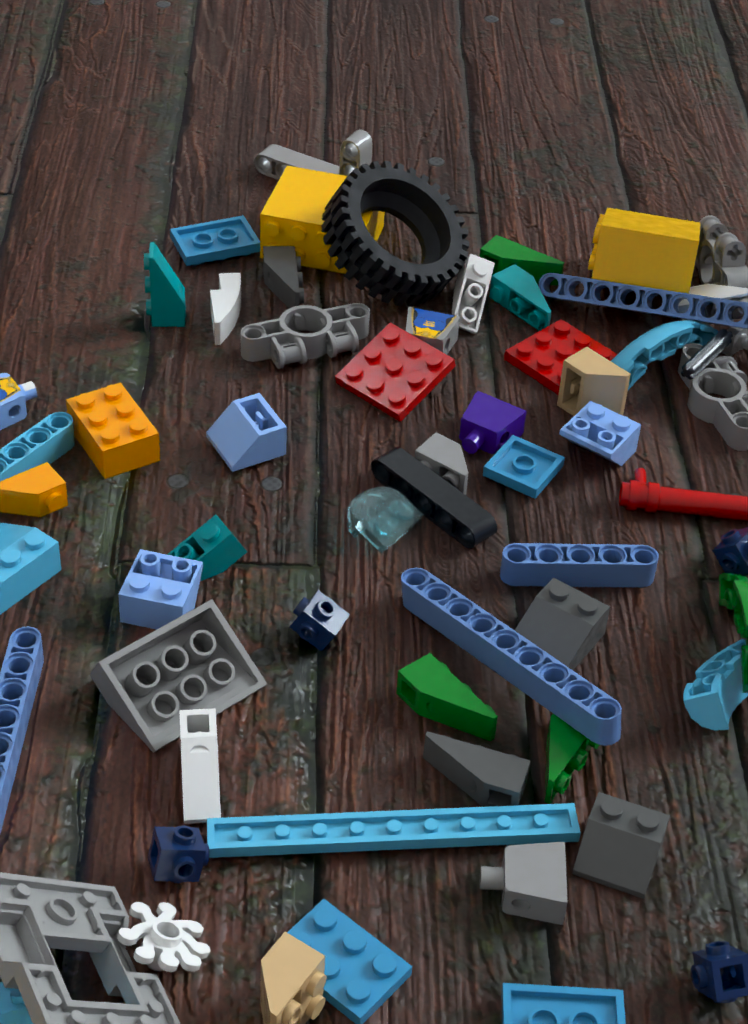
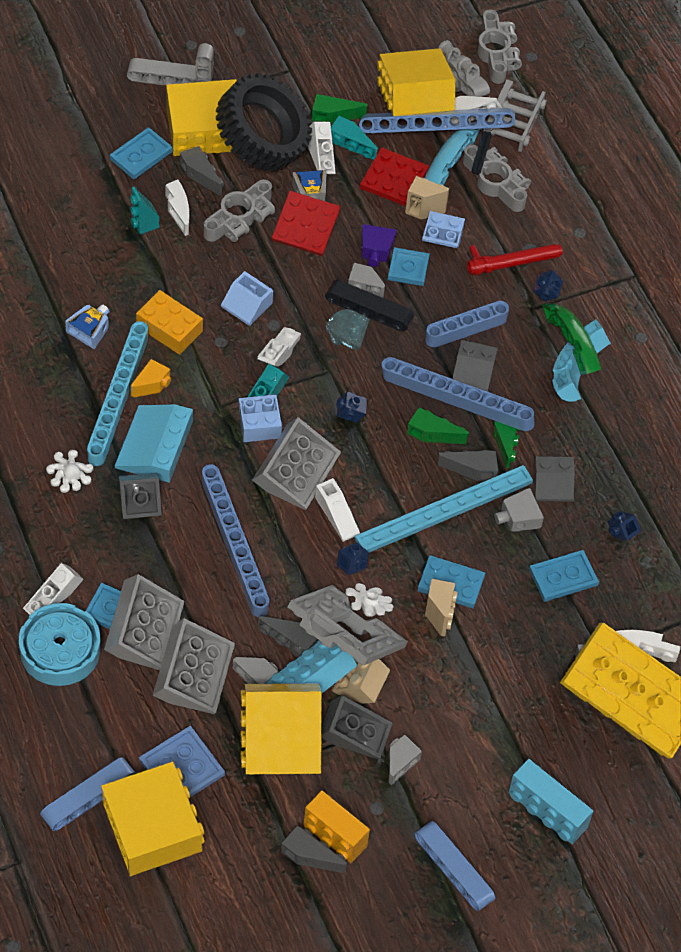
camera: 25 degrees left, 15 degrees up
(251, 509) = (280, 348): none -> white slope

